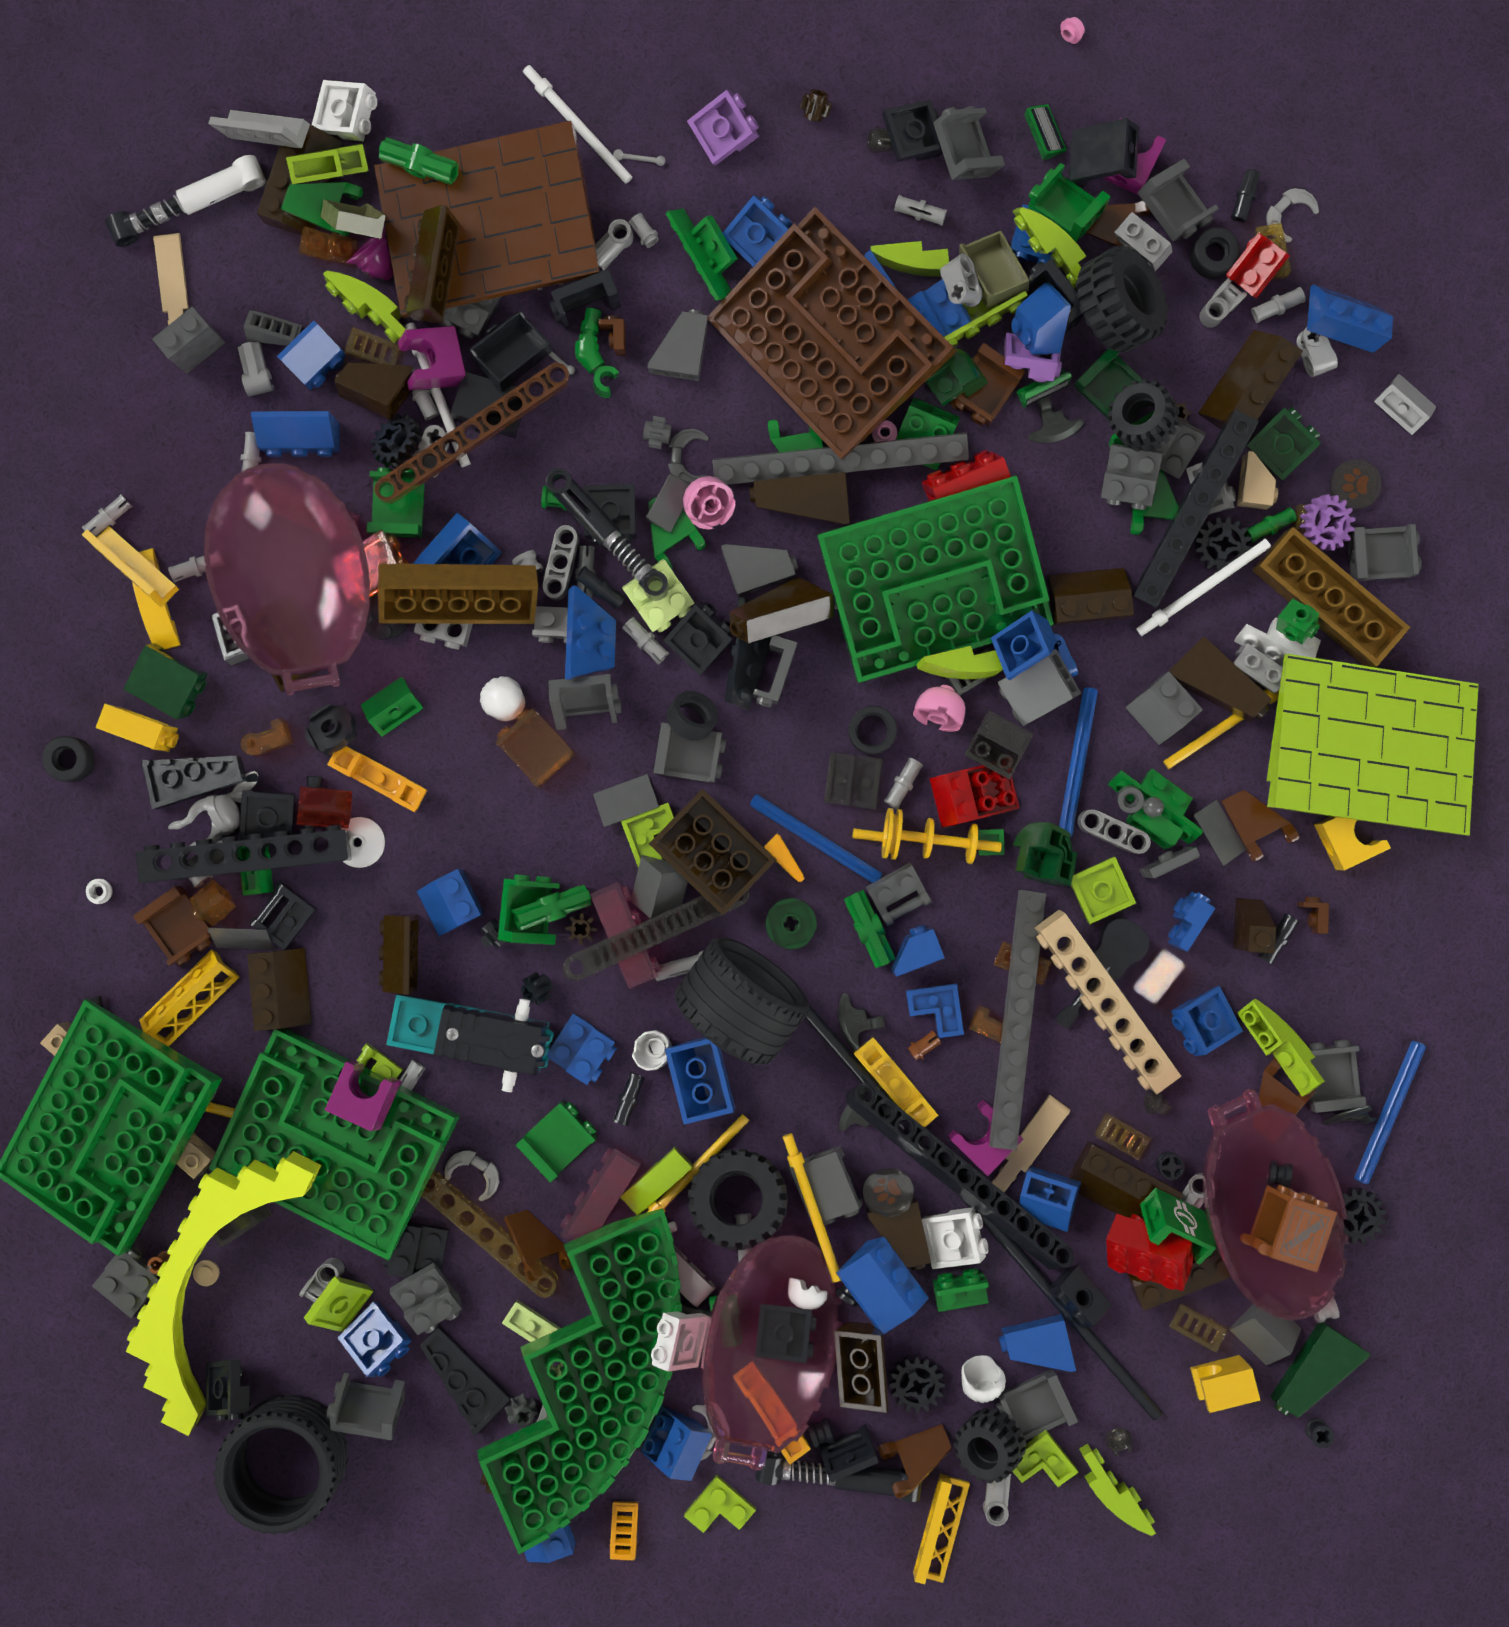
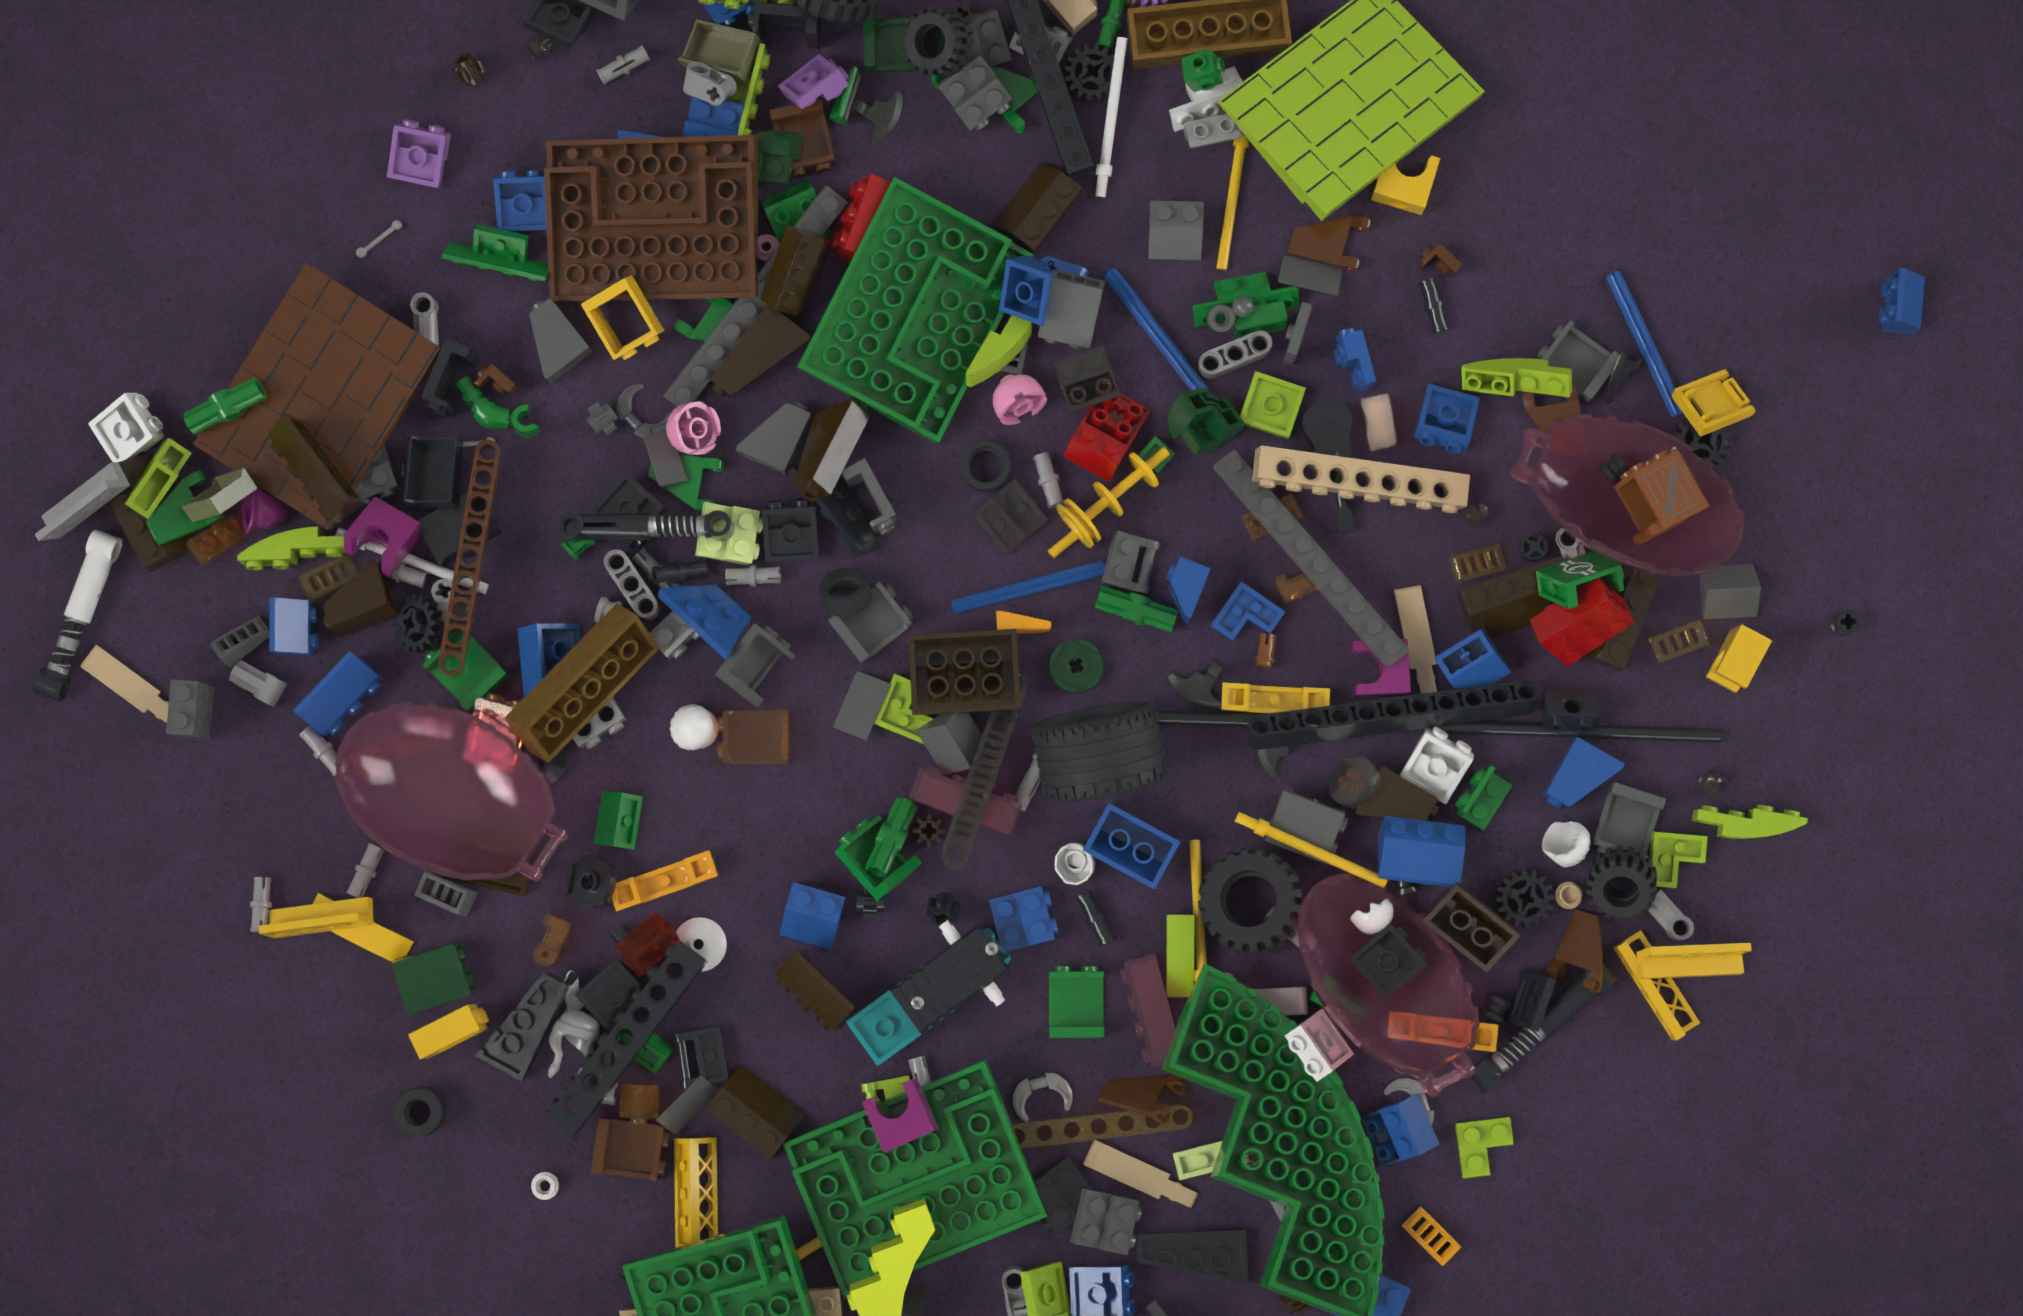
camera: 50 degrees left, 5 degrees down
(480, 1289) = (1137, 1174): none -> tan piece
(521, 1410) = (1255, 1228): dark grey gear -> none
(545, 89) = (257, 261): white bar -> none
(644, 231) = (438, 286): light grey pin -> none
(721, 372) = (603, 328): none -> yellow window
(886, 469) = (796, 270): none -> dark brown slope
(910, 258) = (653, 105): lime slope -> none
(947, 1411) = (1568, 895): none -> tan plate
(979, 1541) = (1692, 960): none -> yellow fence
(1042, 320) = (795, 51): blue slope -> none
(1217, 679) = (1191, 170): dark brown slope -> none
(1253, 927) = (1405, 316): dark brown slope -> none
(1317, 1369) = (1792, 574): dark green slope -> none
(1329, 1311) = (1753, 530): light grey wheel -> none
(1394, 1201) = (1716, 402): none -> yellow container

